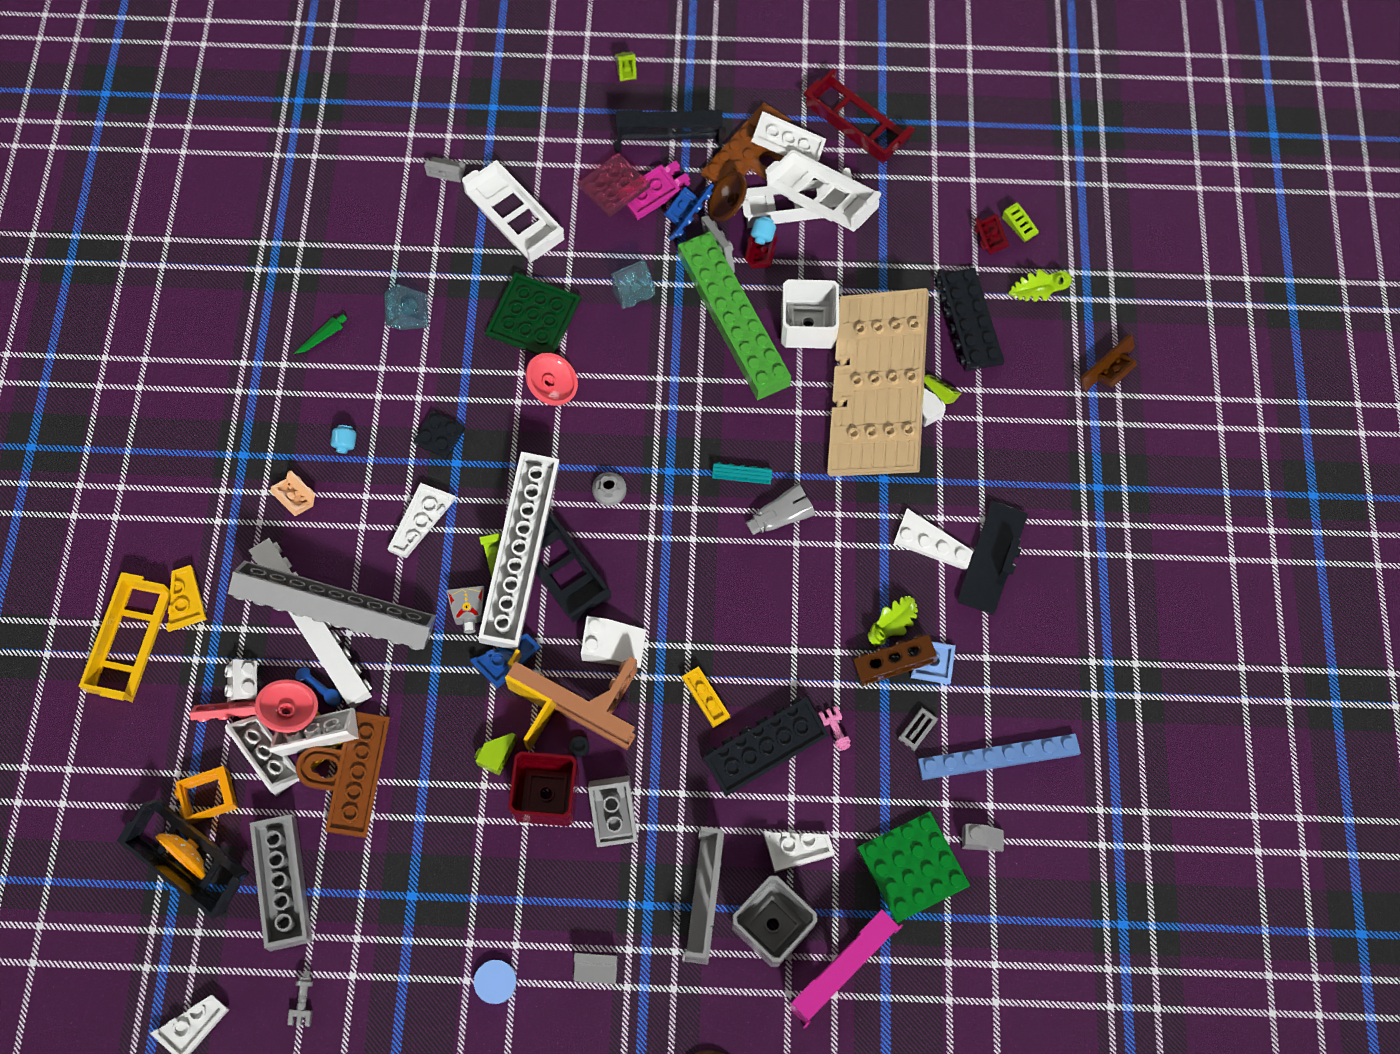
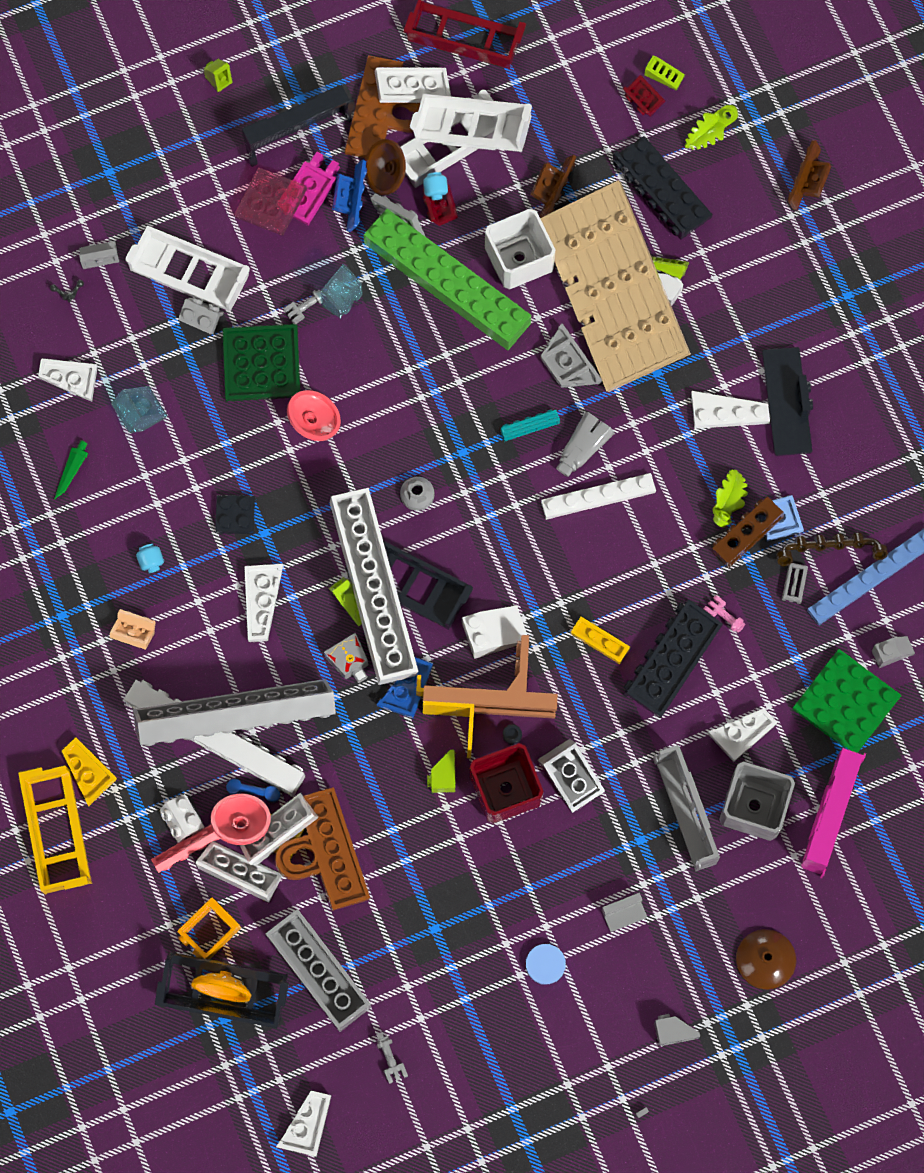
camera: 25 degrees left, 5 degrees up
(364, 257) = (70, 376): none -> white wing
(401, 192) = (69, 296): none -> pearl dark grey piece
(502, 253) = (200, 314): none -> light grey bracket
(585, 286) = (297, 310): none -> light grey hinge
(772, 564) = (598, 496): none -> white plate
(805, 433) = (568, 362): none -> light grey wing
(869, 271) = (550, 184): none -> reddish brown bracket
(919, 699) = (785, 558): none -> dark brown bar

